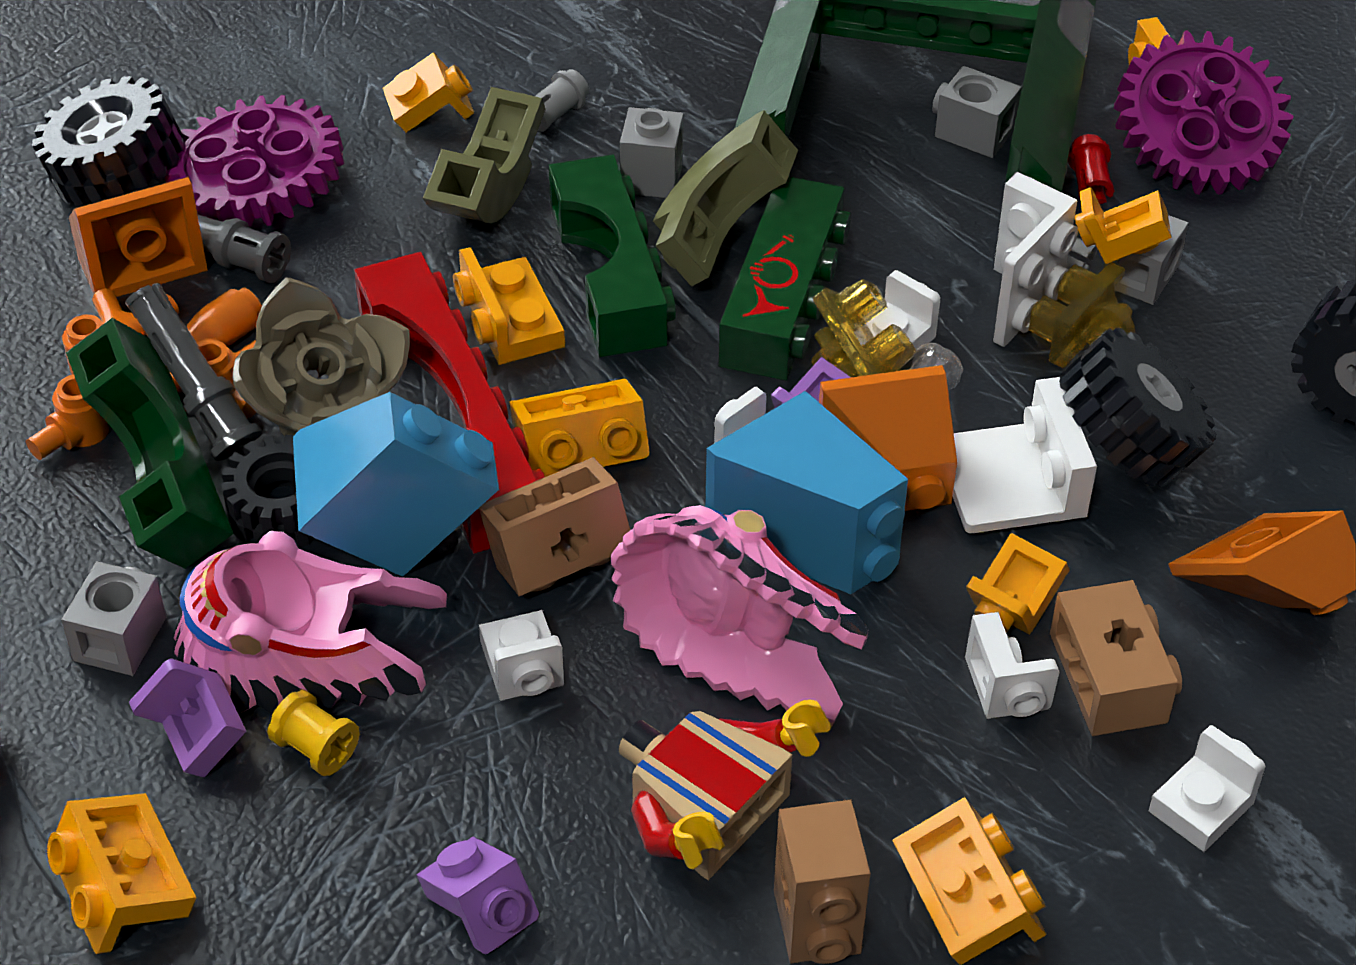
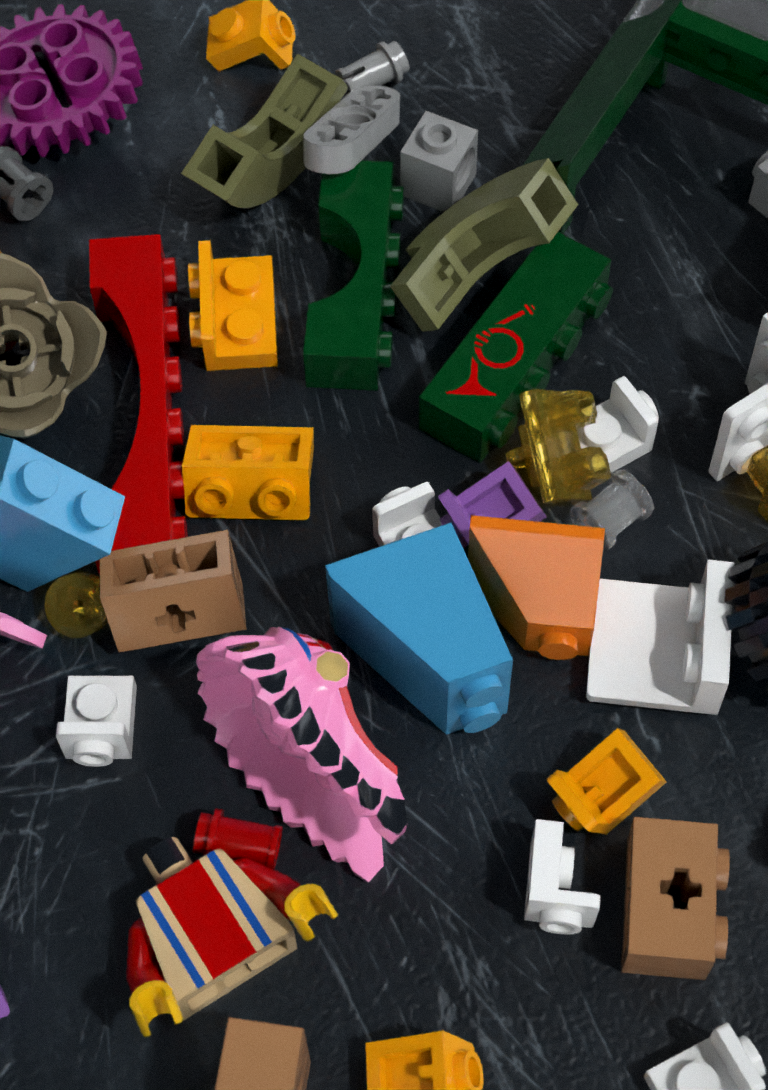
camera: 20 degrees right, 15 degrees up
(463, 566) = (75, 605): none -> clear yellow tile
(562, 139) = (351, 129): none -> light grey beam
(675, 708) = (237, 838): none -> red pin

